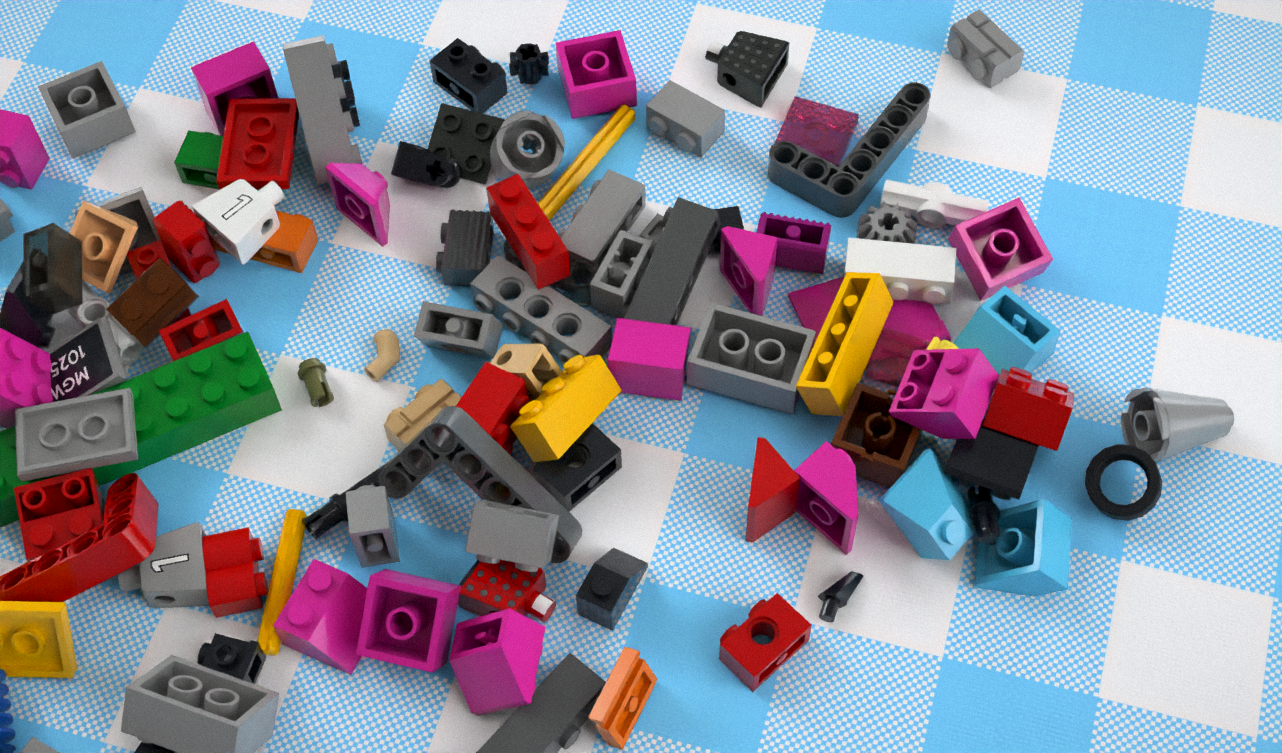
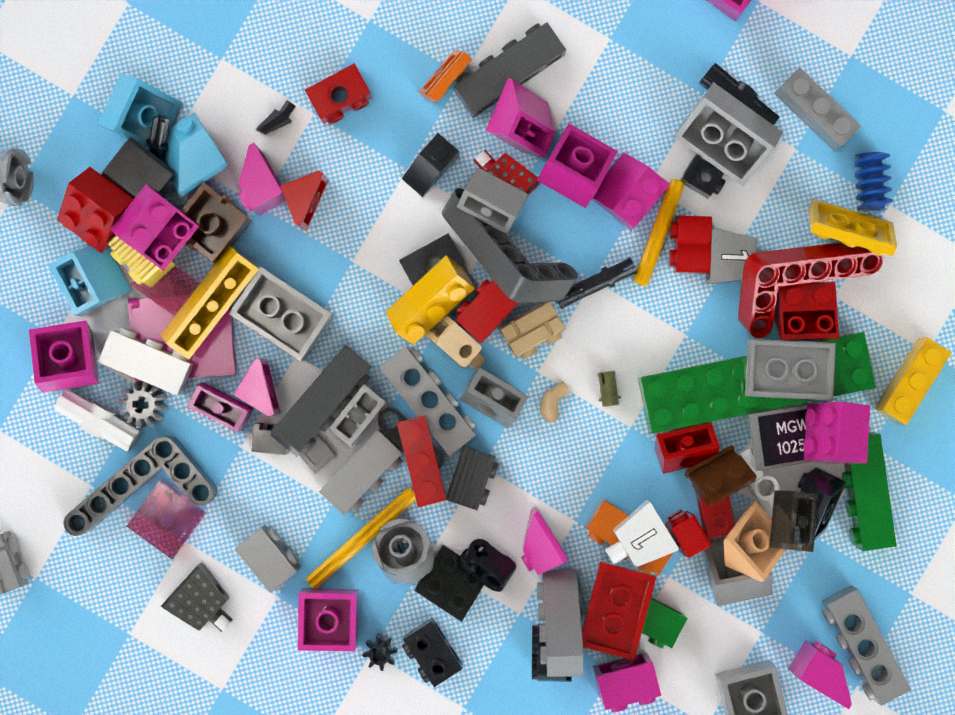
camera: 170 degrees left, 30 degrees up
(372, 526) = (588, 246): light grey brick -> none
(649, 358) = (356, 335): dark pink slope -> none
(1128, 453) = (53, 120): black tyre -> none

